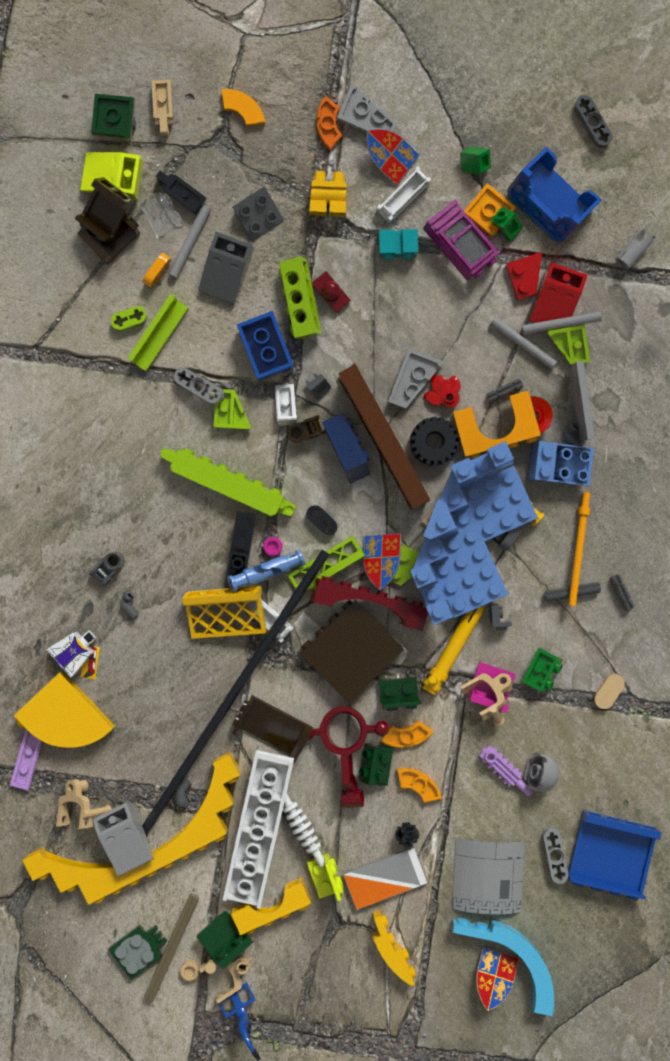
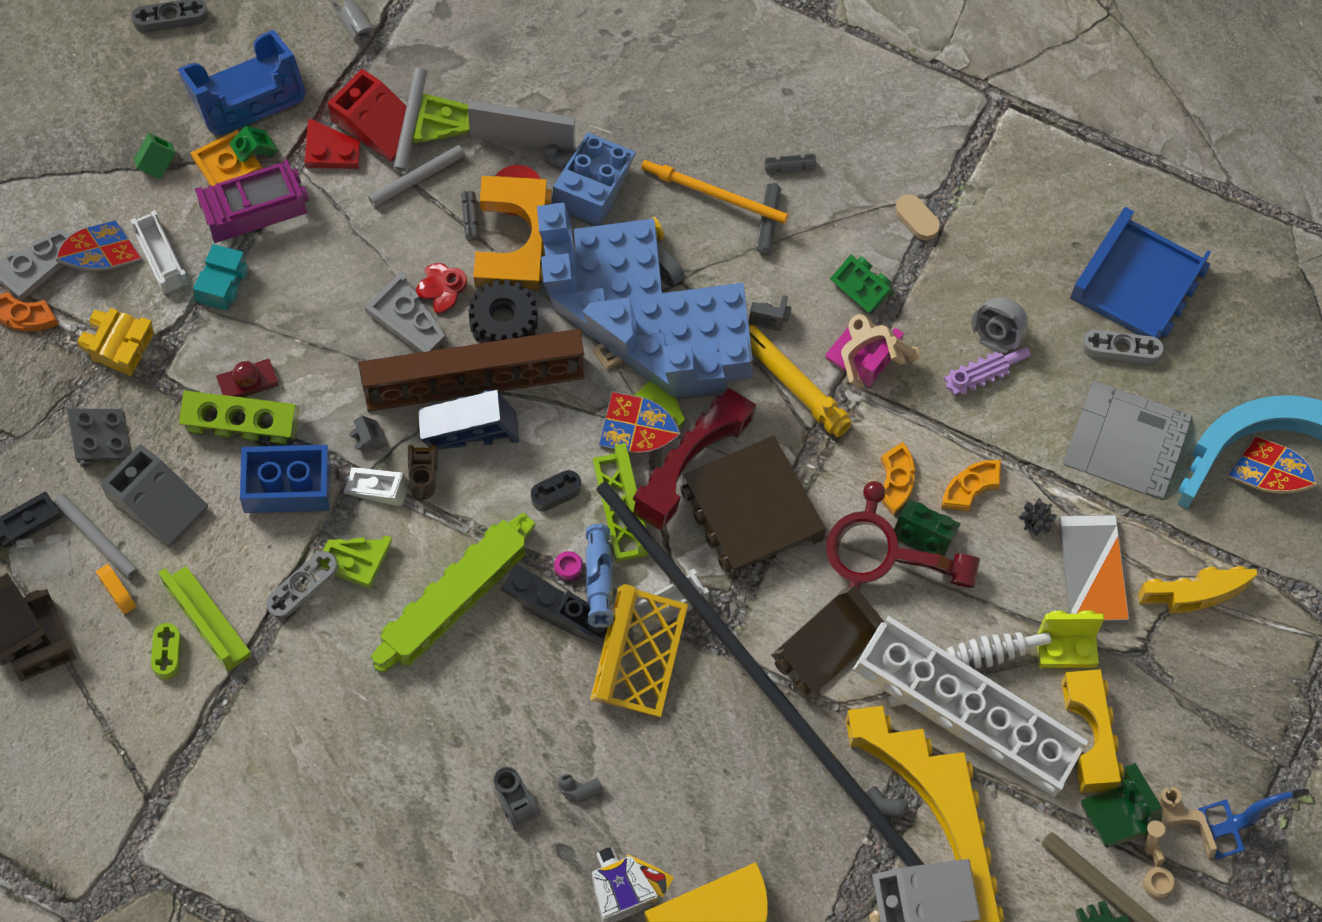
camera: 80 degrees left, 25 degrees down
(399, 693) = (833, 466): dark green bracket -> none

